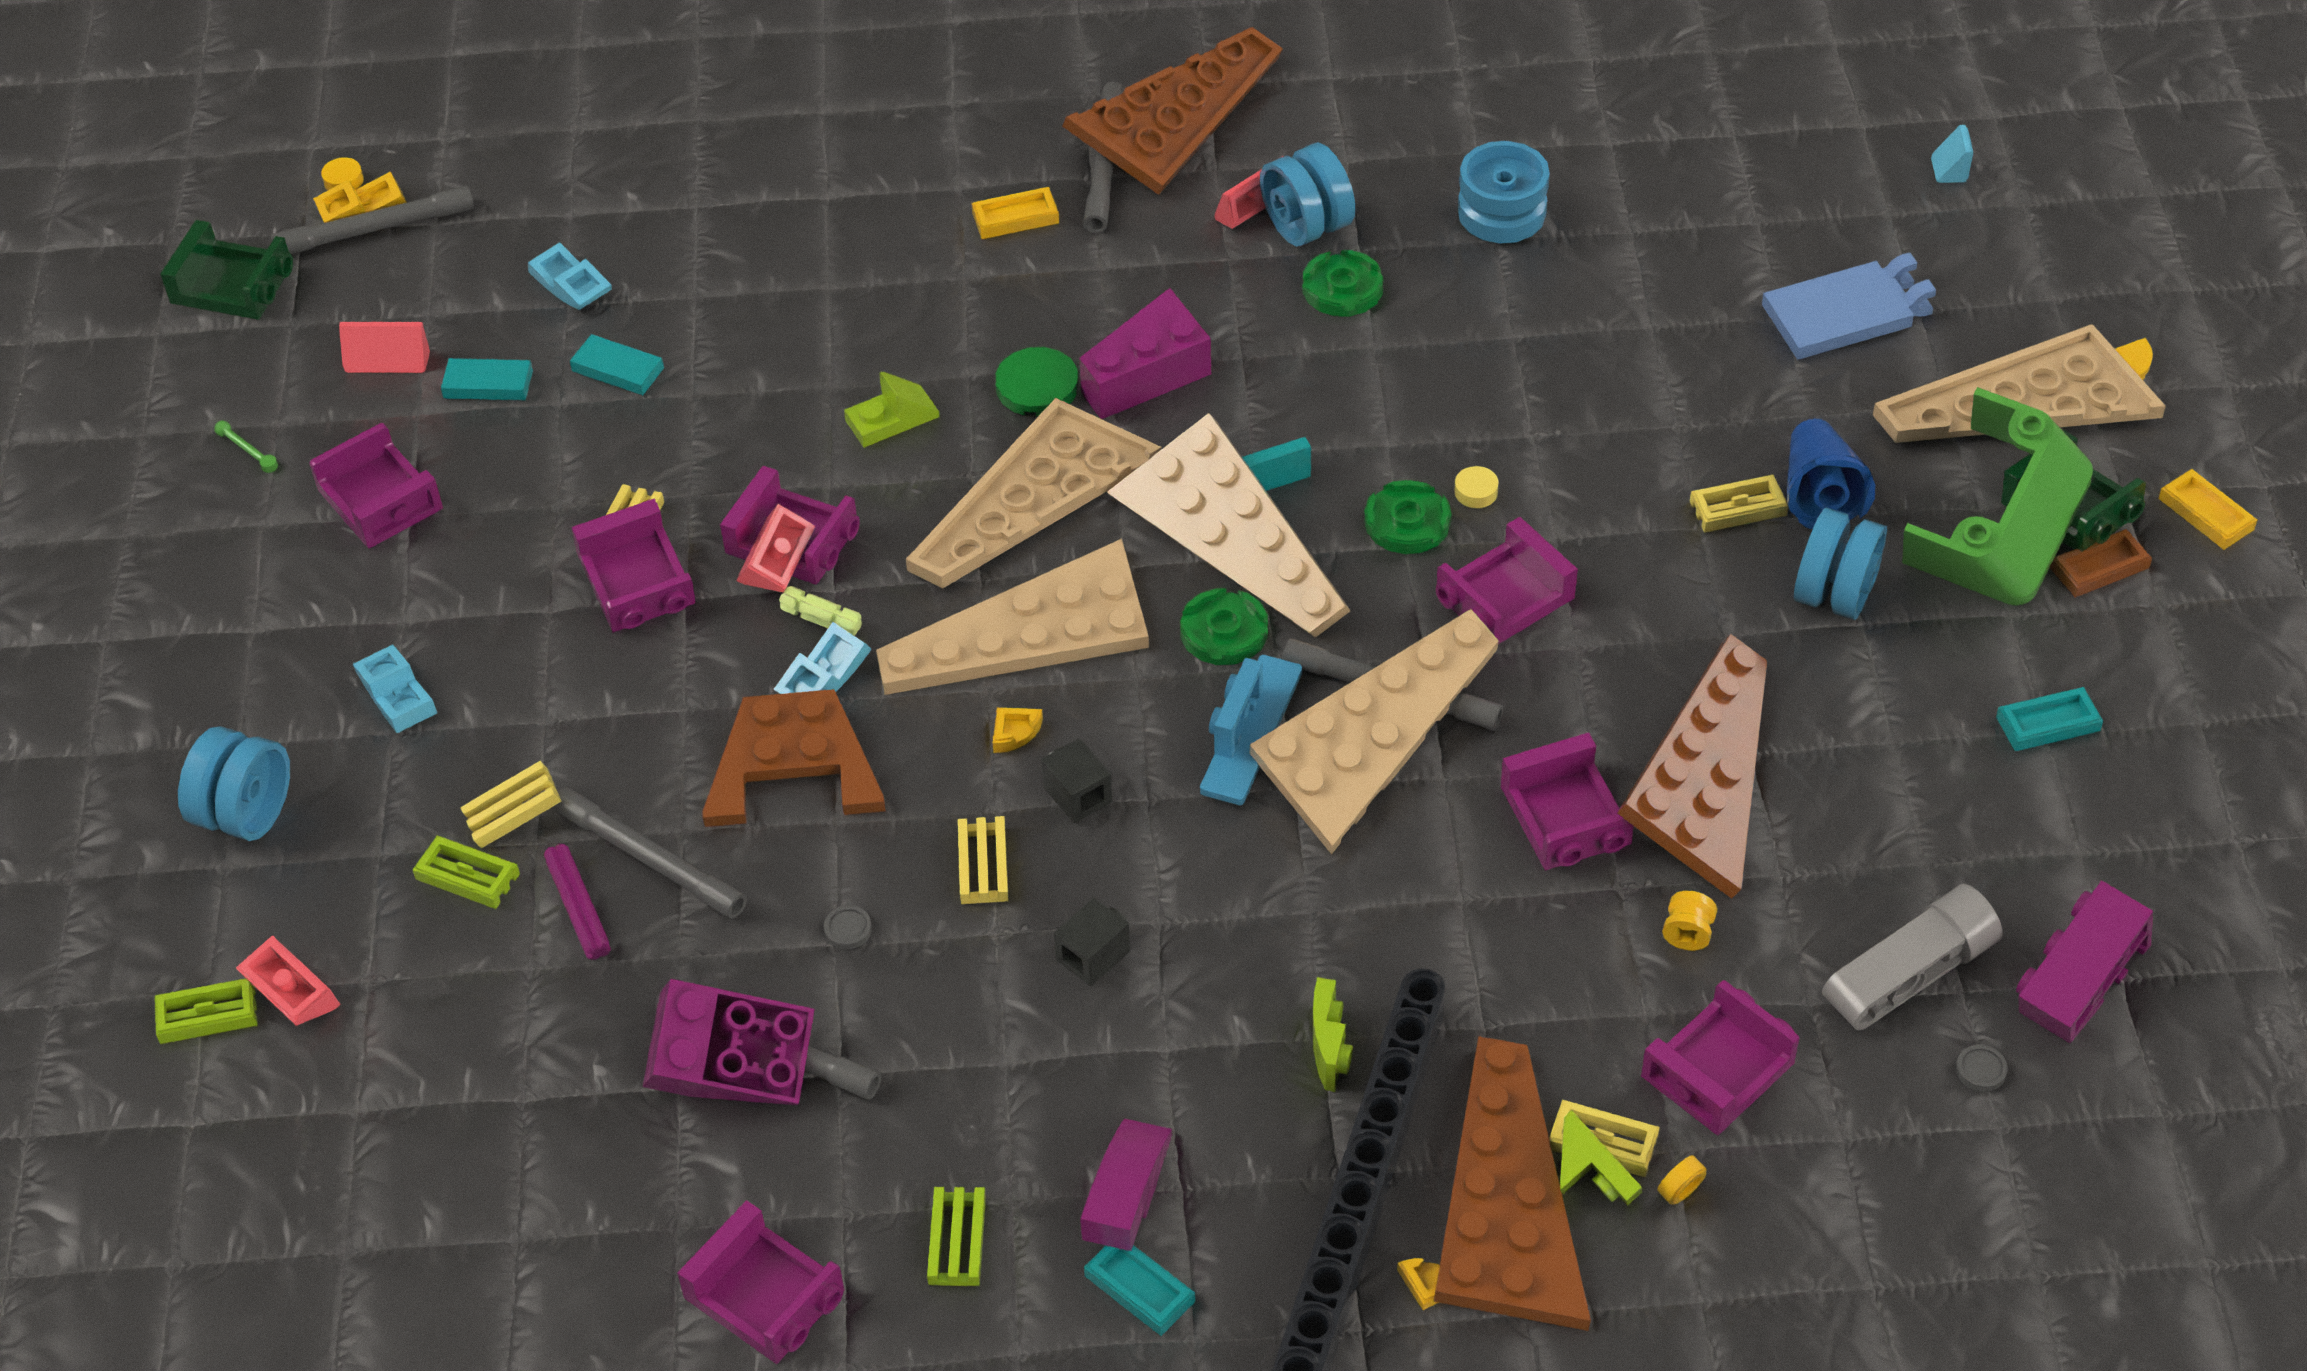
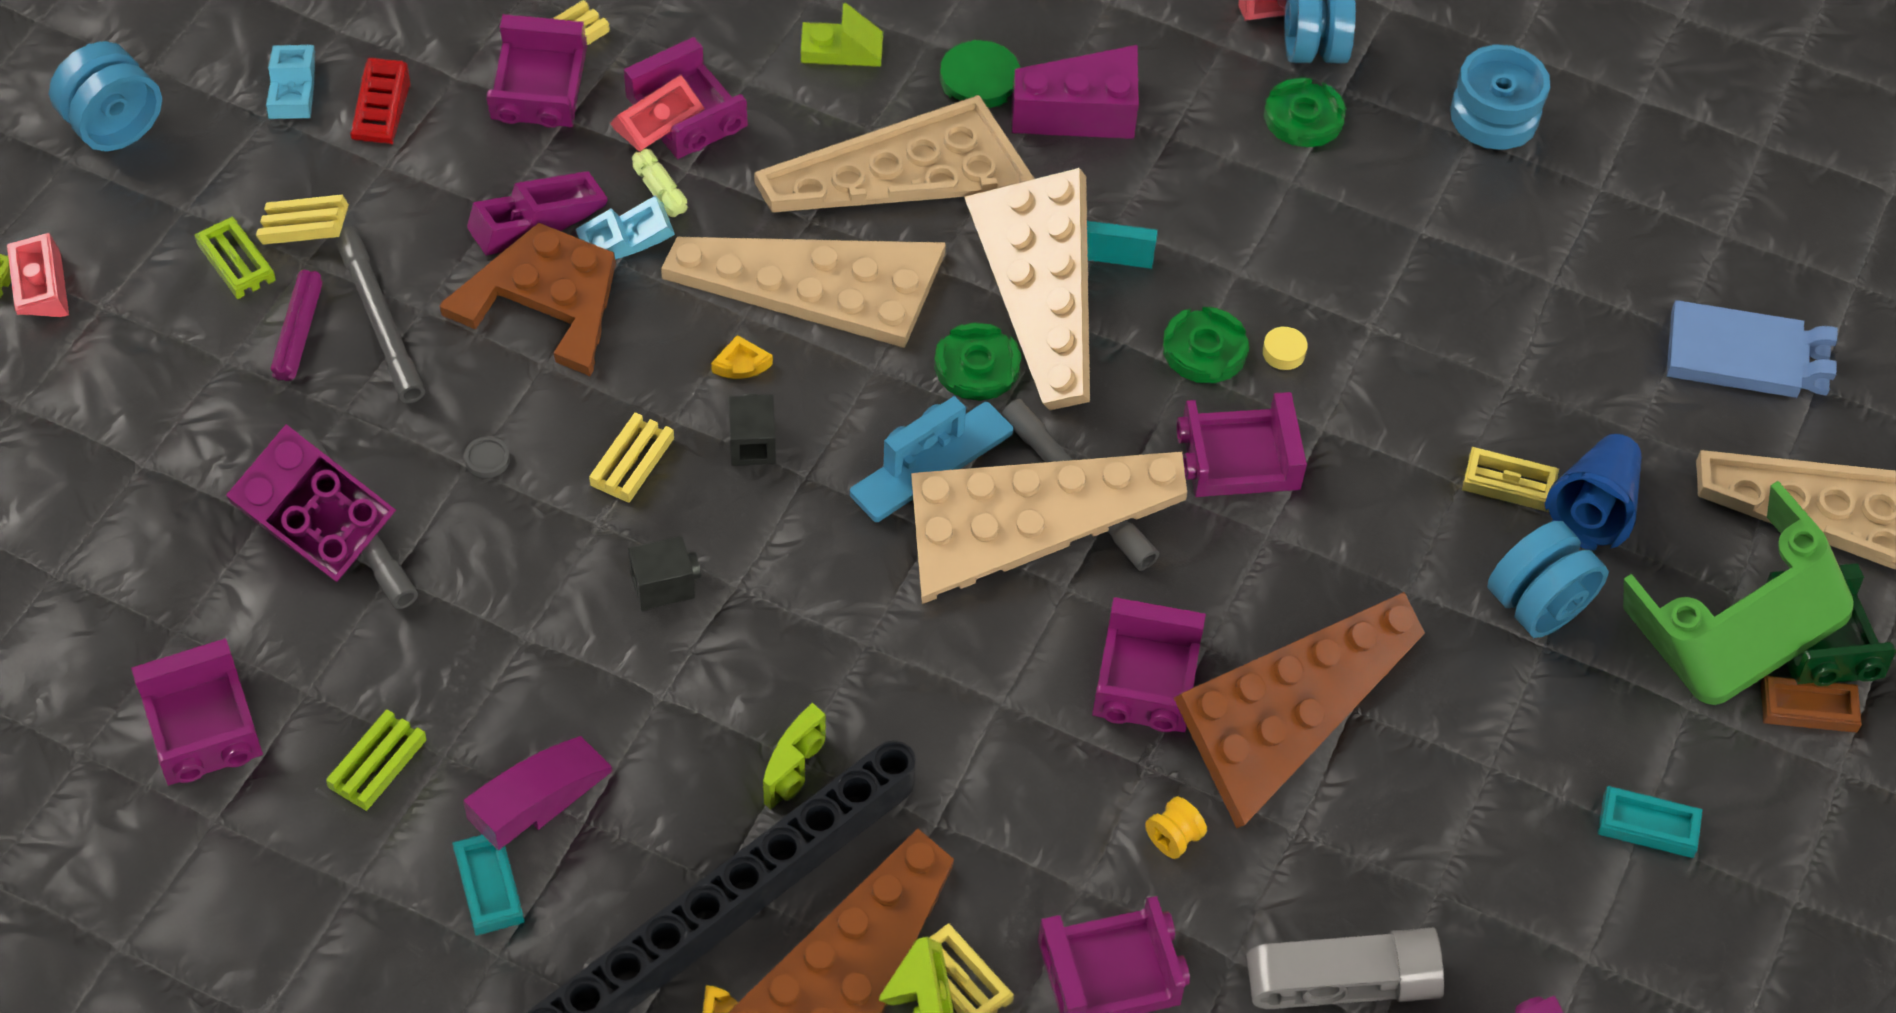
camera: 25 degrees right, 5 degrees up
(489, 640) = (386, 77): none -> red slope
(711, 708) = (548, 201): none -> magenta slope

